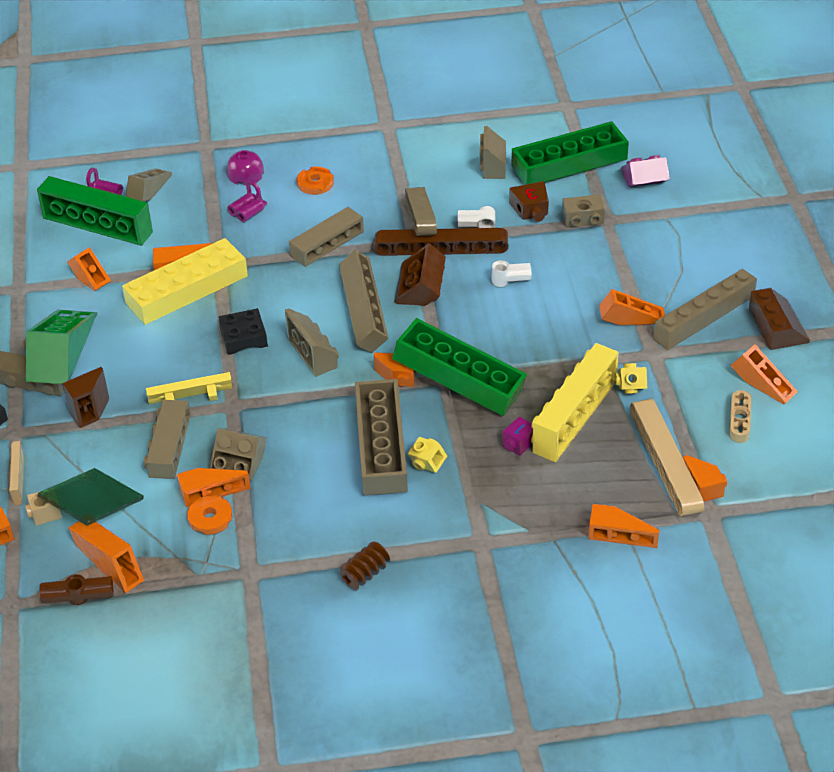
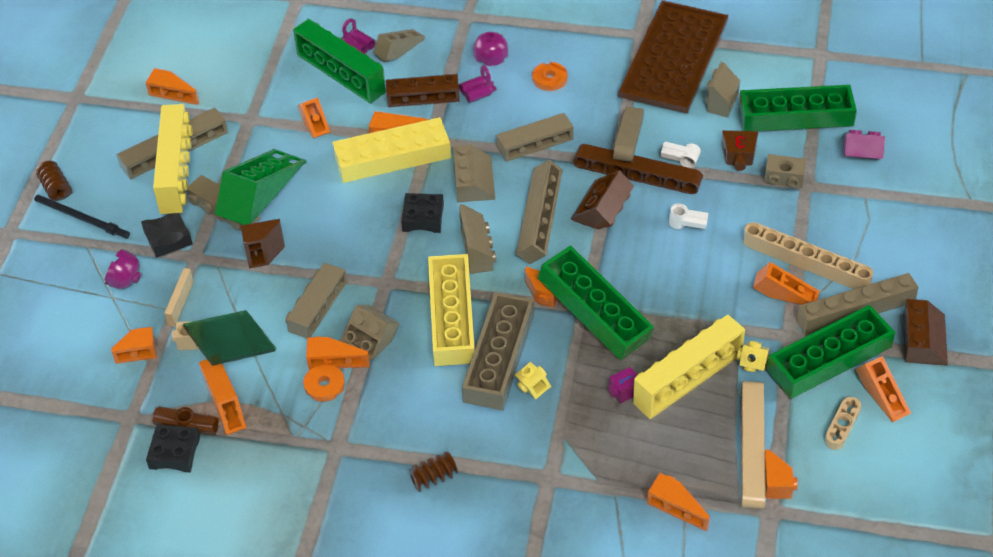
camera: 20 degrees right, 5 degrees up
(73, 620) = (173, 448): none -> black brick
(191, 387) = (368, 257): light yellow hinge -> none
(192, 220) = (422, 90): none -> reddish brown brick
(277, 284) = (473, 174): none -> dark tan slope
(315, 411) = (451, 310): none -> light yellow brick
(430, 136) = (674, 56): none -> reddish brown plate
(638, 279) = (807, 256): none -> tan beam
(701, 355) = (830, 351): none -> green brick

